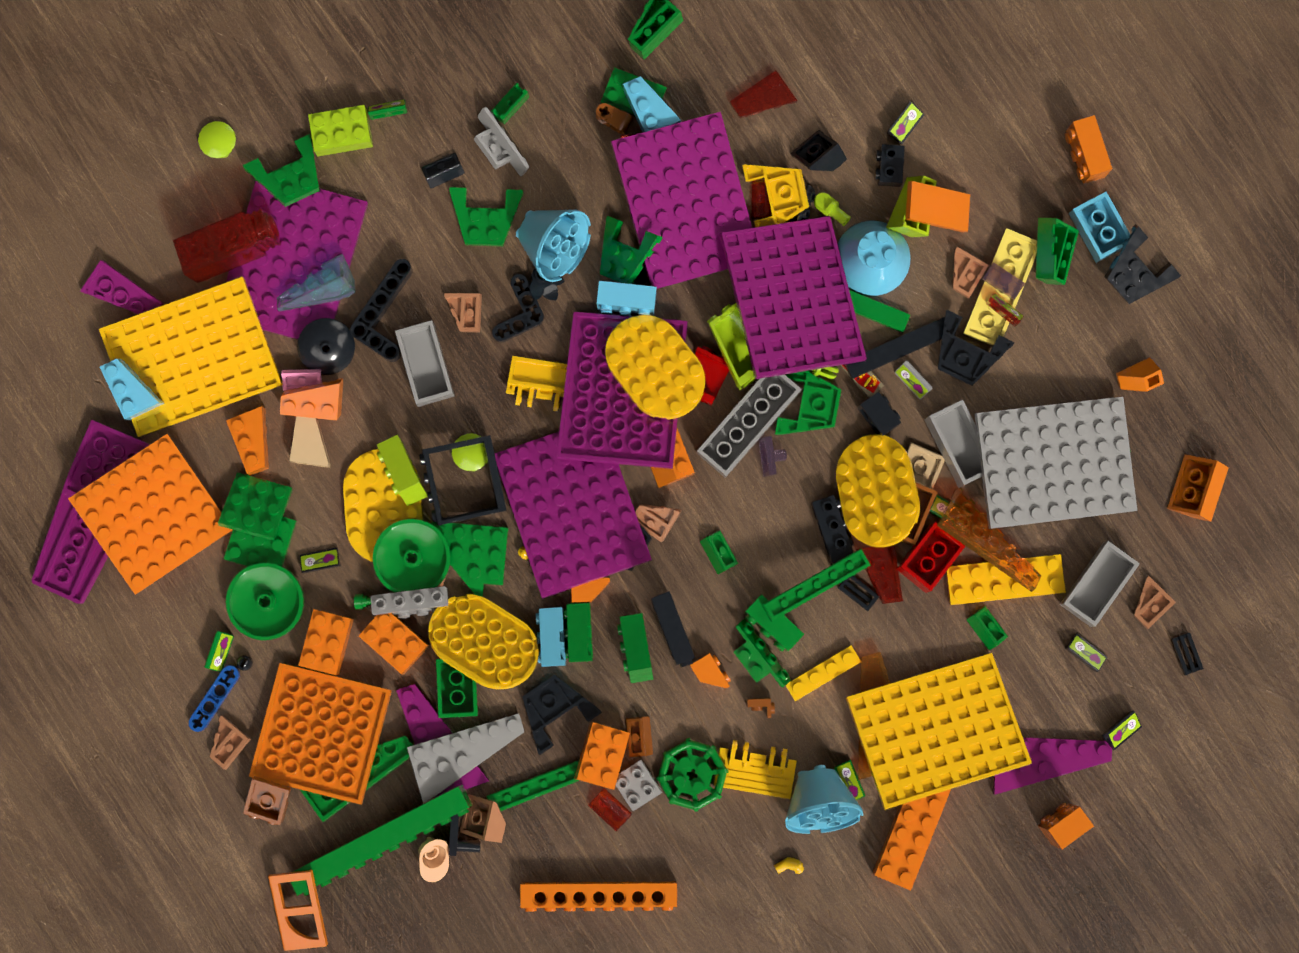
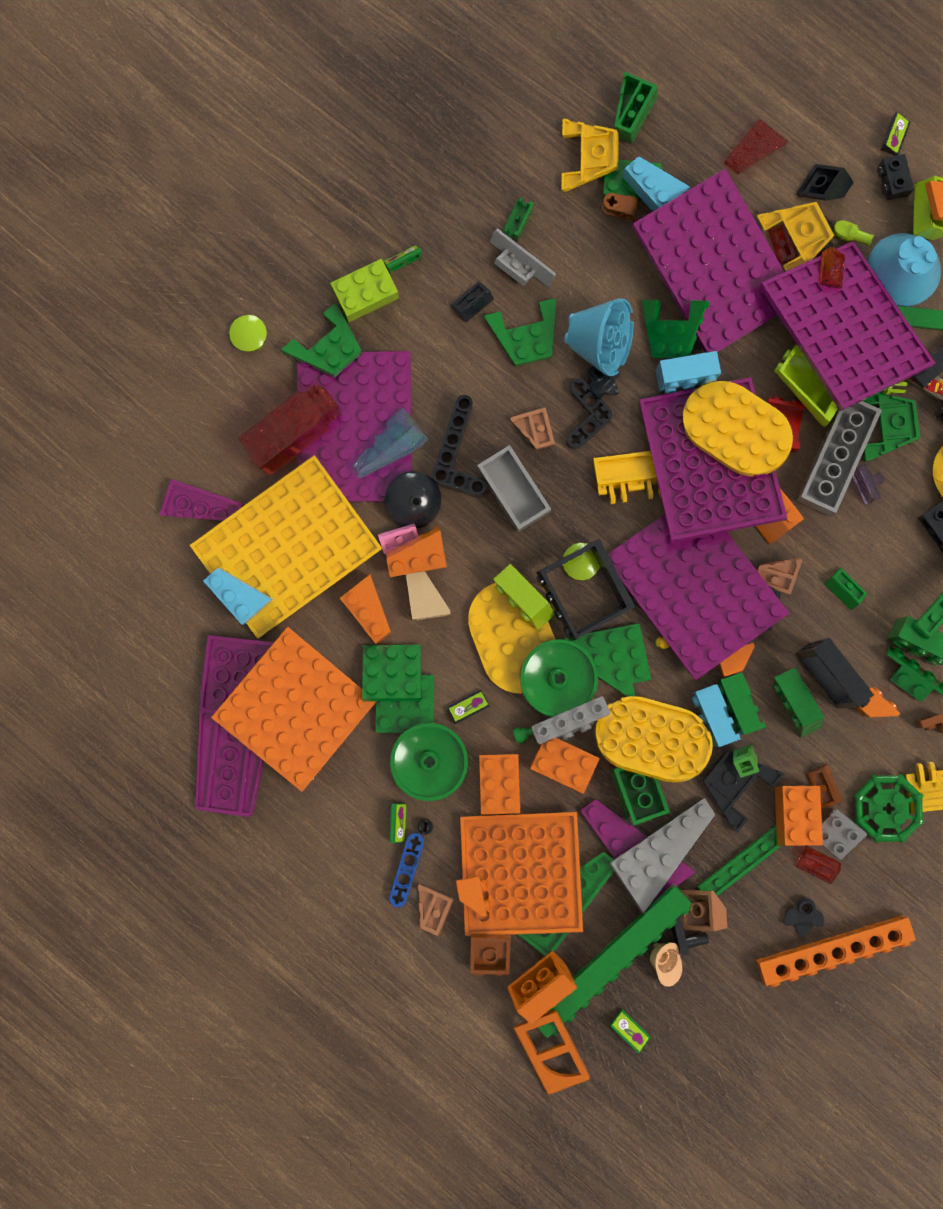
camera: 20 degrees left, 0 degrees up
(266, 739) = (472, 894): none -> orange slope
(305, 845) = (541, 987): none -> orange brick
(379, 913) = (630, 1031): none -> slope
(564, 688) = (745, 761): none -> bright green brick
(578, 857) = (804, 919): none -> black plate
(605, 61) = (598, 153): none -> yellow wing
(797, 238) = (832, 268): none -> clear red slope

